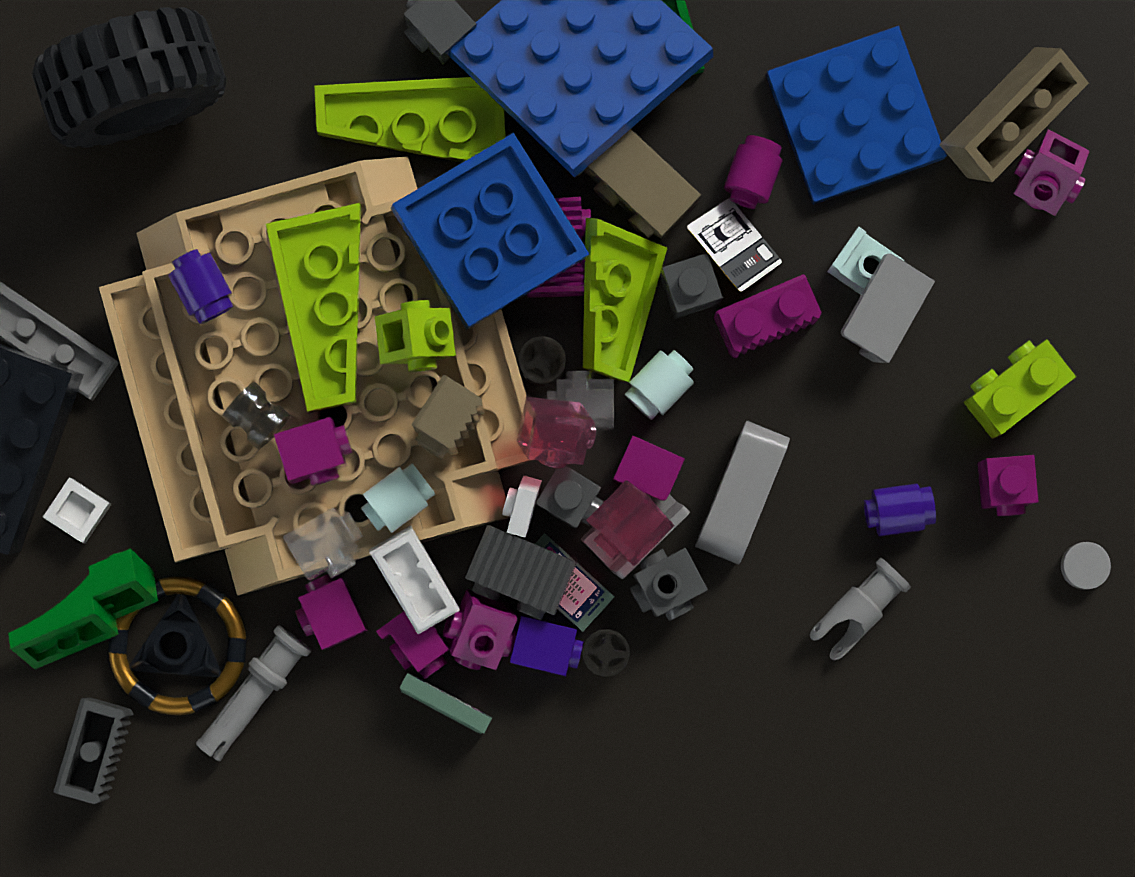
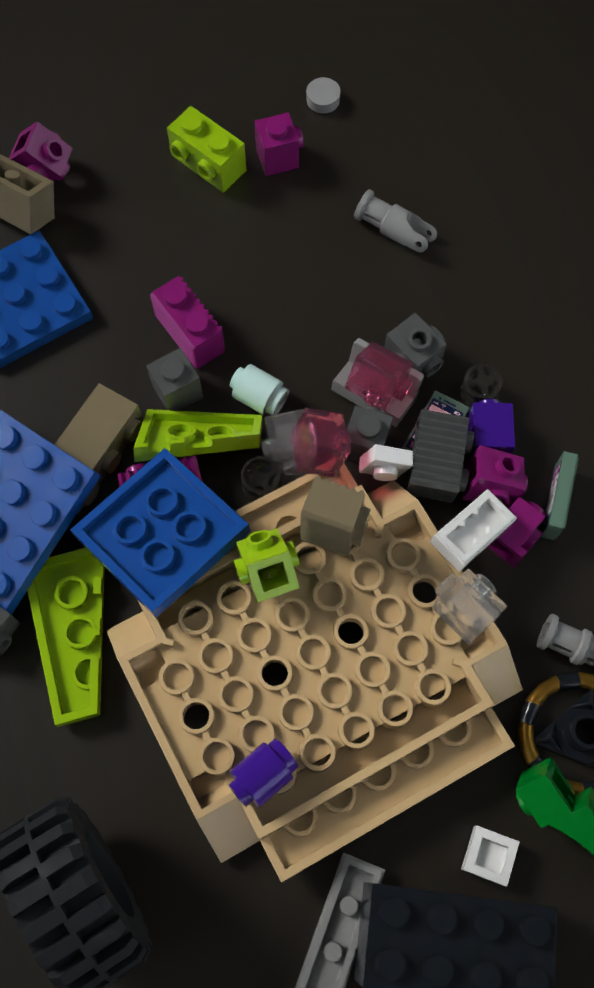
camera: 95 degrees left, 15 degrees down
(256, 415) = (370, 691): clear smoke wheel -> none
(313, 451) = (390, 632): magenta brick -> none
(319, 289) = (241, 663): lime wing -> none
(330, 612) = (523, 600): magenta brick -> none
(397, 498) = (411, 552): light aqua brick -> none
(649, 468) = (327, 383): magenta panel -> none
(734, 244) = (135, 356): sticker -> none
(742, 492) = (328, 315): light grey beam -> none
(753, 171) = (73, 357): magenta brick -> none
(849, 264) = (134, 266): light aqua brick -> none
(886, 308) = (166, 237): light grey panel -> none
(900, 509) = (314, 208): dark purple brick -> none

